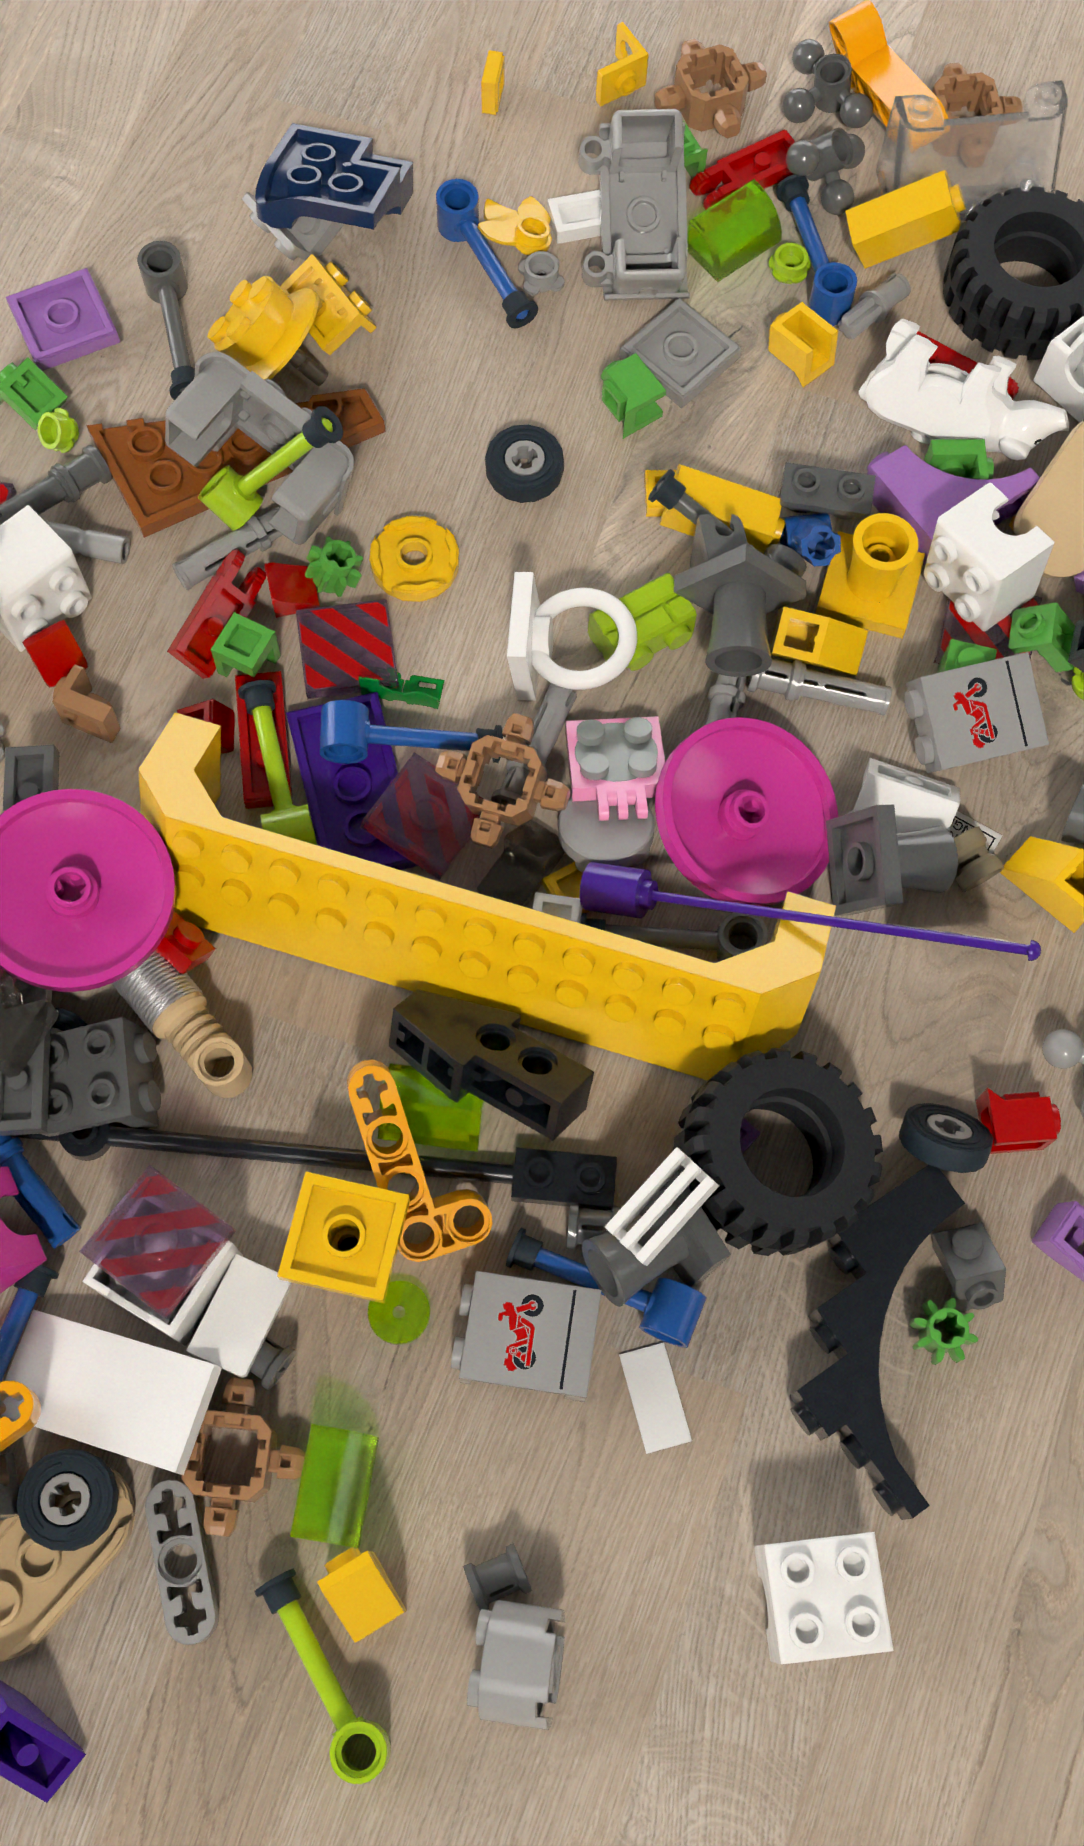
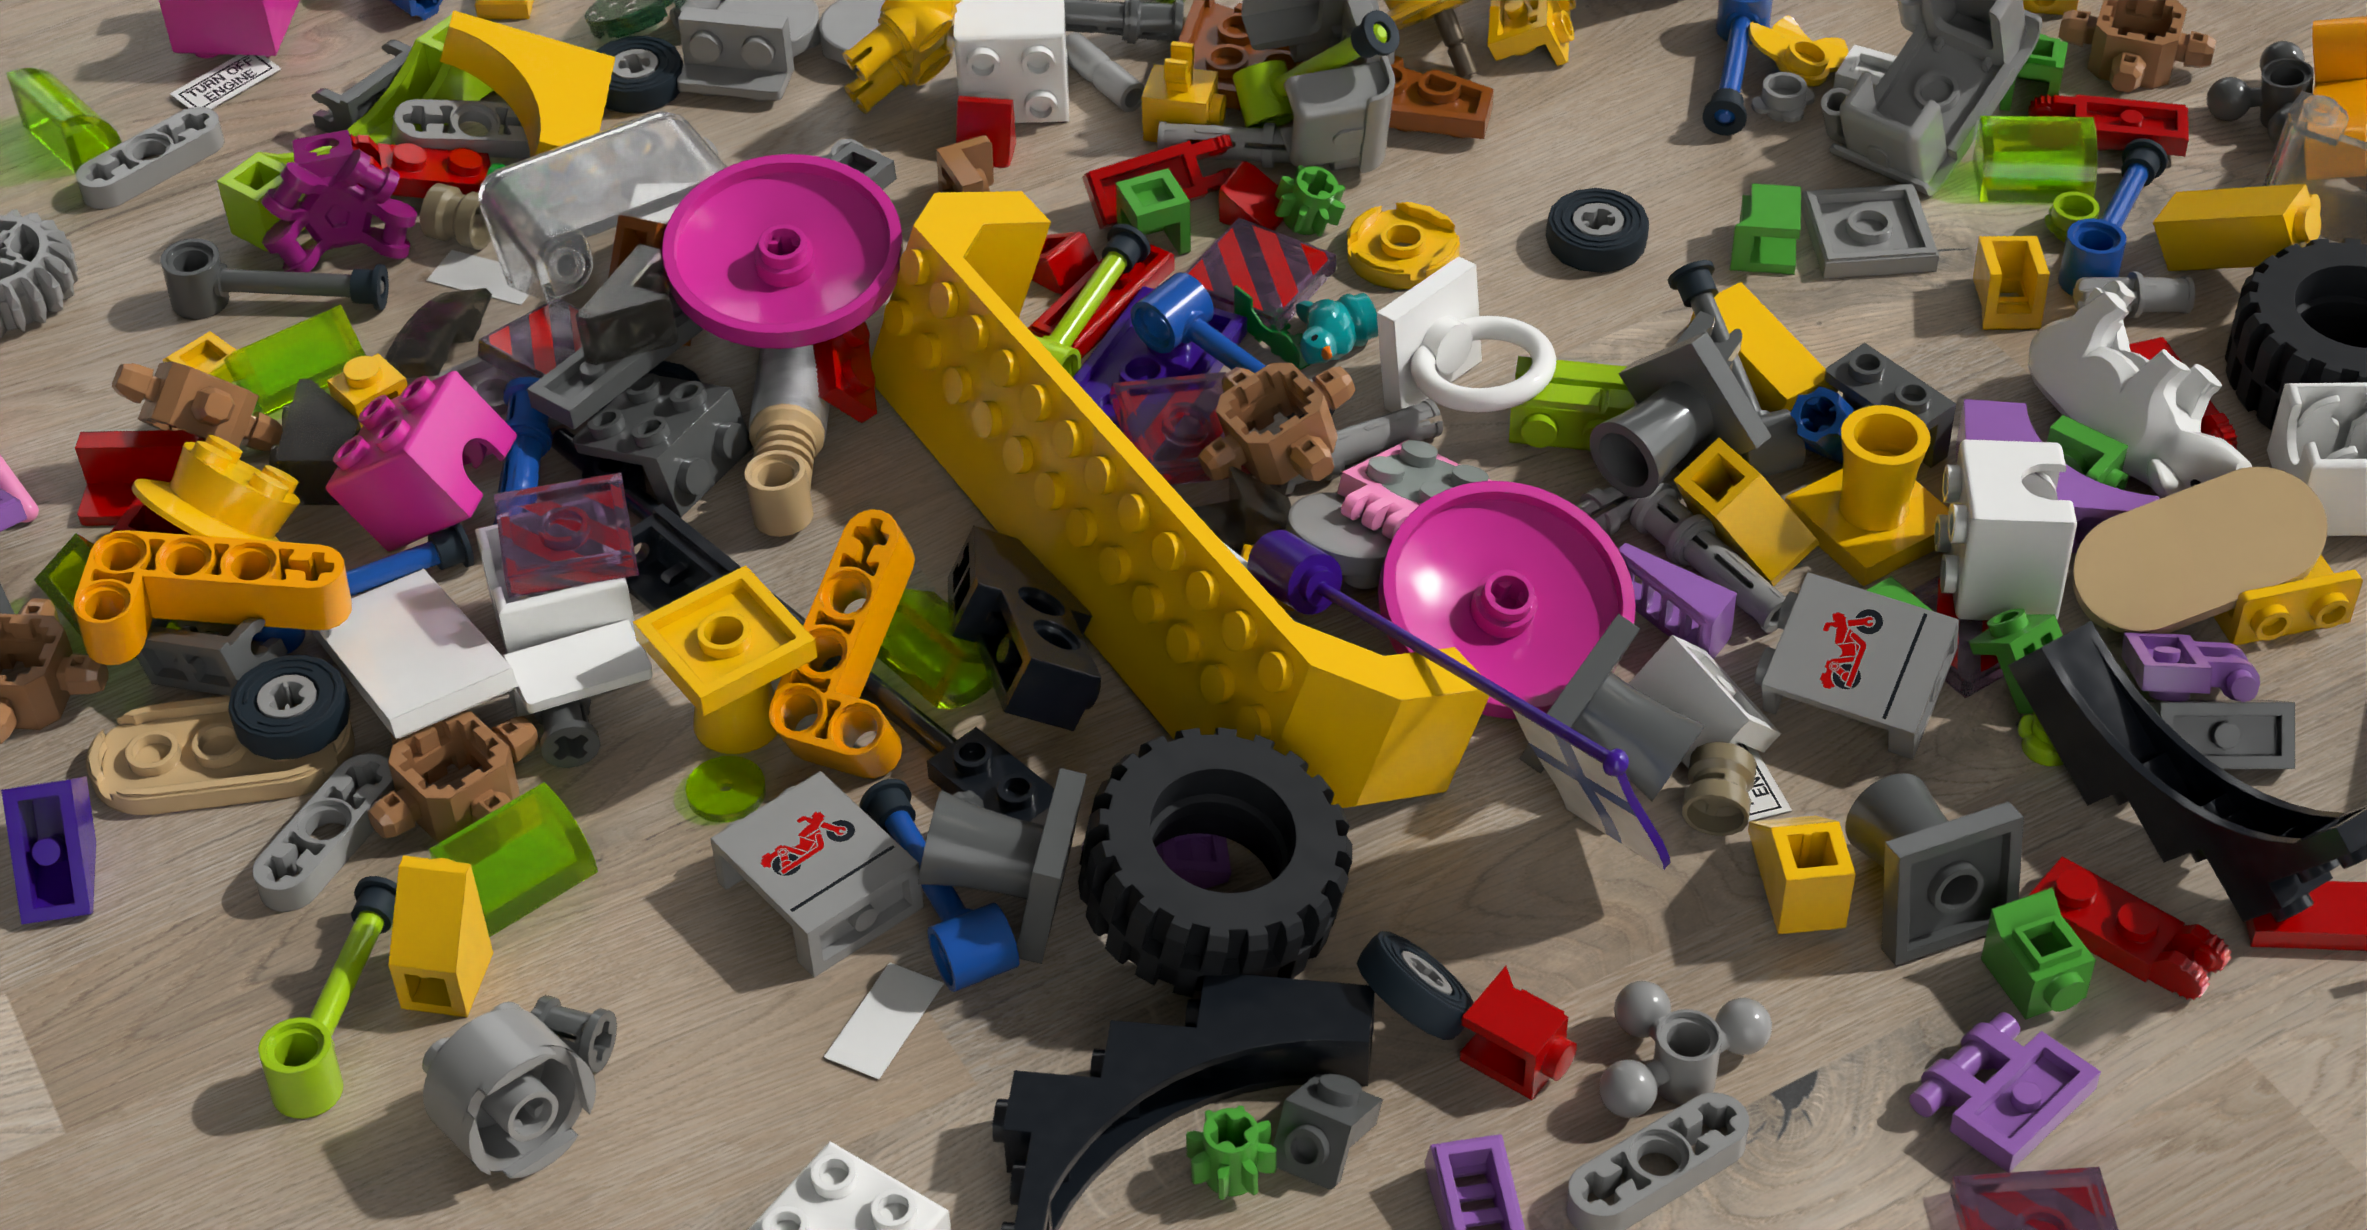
camera: 45 degrees right, 25 degrees down
(168, 534) = (1181, 94): none -> yellow brick
(220, 1178) = (673, 559): none -> black hinge
(442, 662) = (1336, 326): none -> teal animal
(646, 1193) = (1031, 787): white tile -> none
(825, 158) = (2201, 141): dark grey piece -> none
(837, 735) = (1681, 601): none -> medium lavender slope

